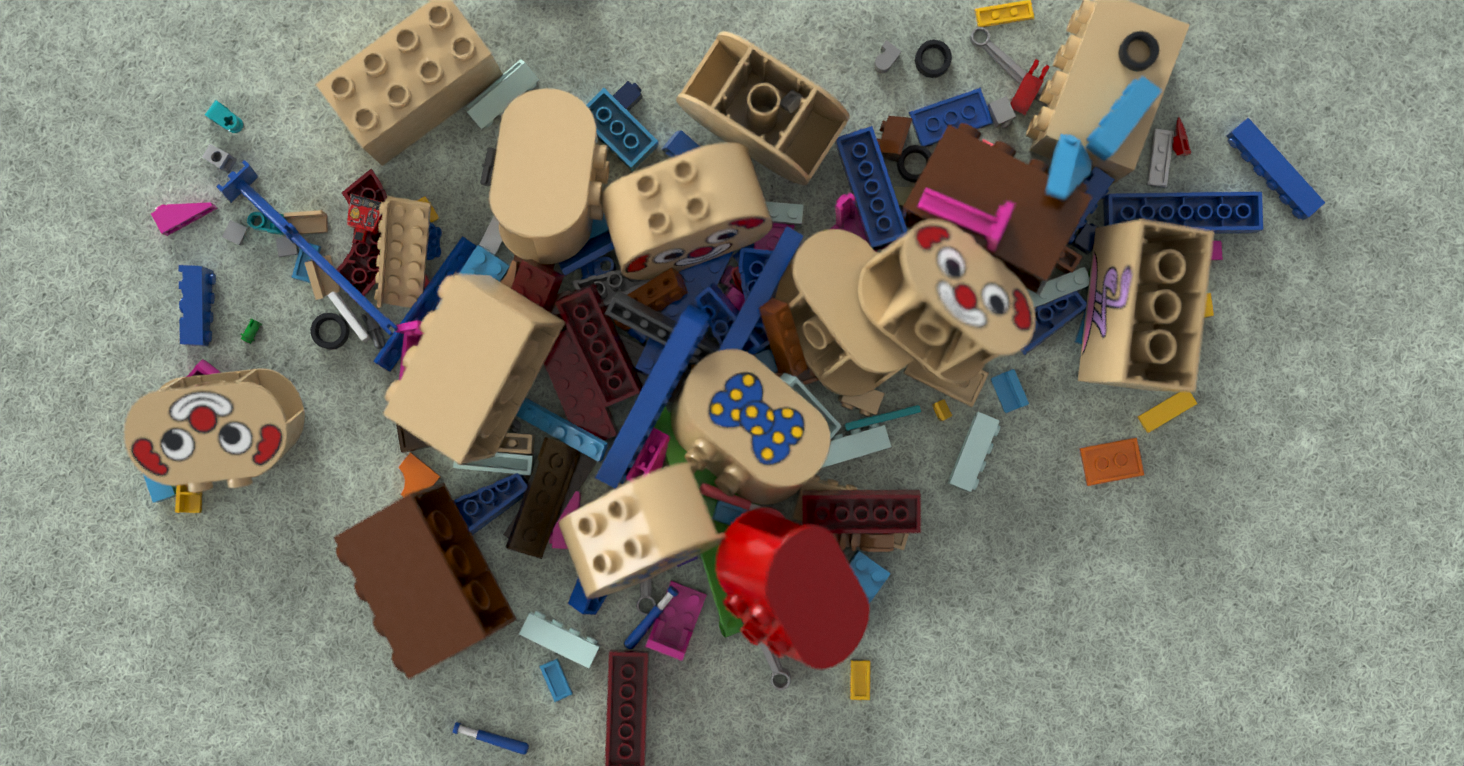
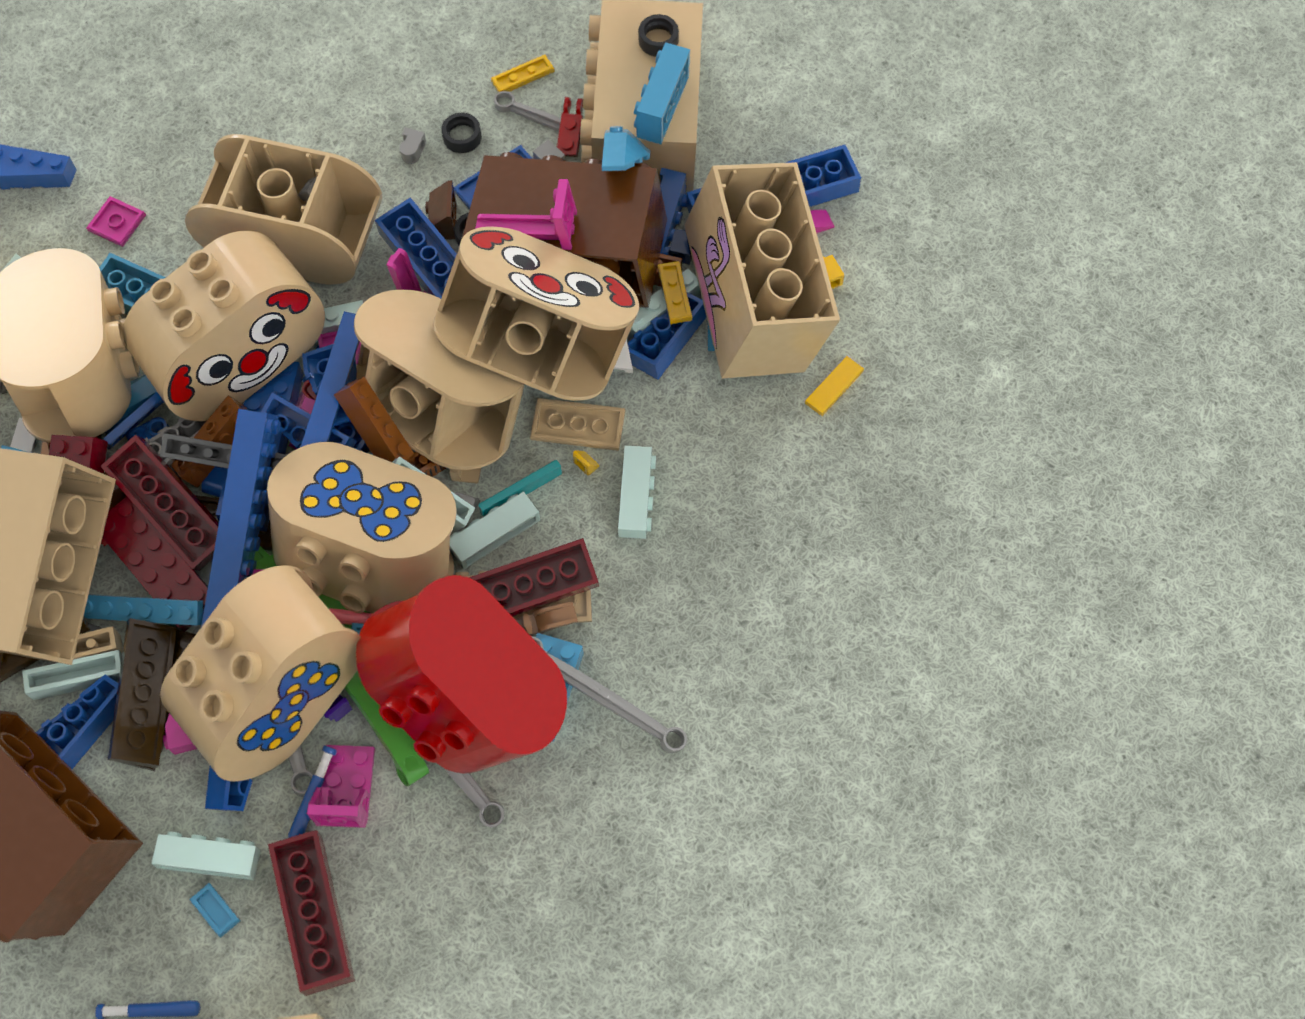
camera: 15 degrees left, 20 degrees down
(614, 47) = (116, 221): none -> dark pink tile
(628, 95) = (143, 256): dark blue brick -> none
(838, 413) = (469, 499): none -> light grey tile
(860, 680) = (589, 785): yellow tile -> none
(866, 403) = (490, 478): tan brick -> none
(898, 625) = (617, 704): none -> light grey piece
(1009, 391) = (655, 418): dark azure panel -> none
(1066, 289) = (674, 292): none -> yellow tile
(1111, 461) = (794, 456): orange tile -> none
(1160, 158) = (730, 145): white tile -> none
(1180, 141) = (746, 132): red plate -> none
(1275, 169) = (853, 127): blue brick -> none

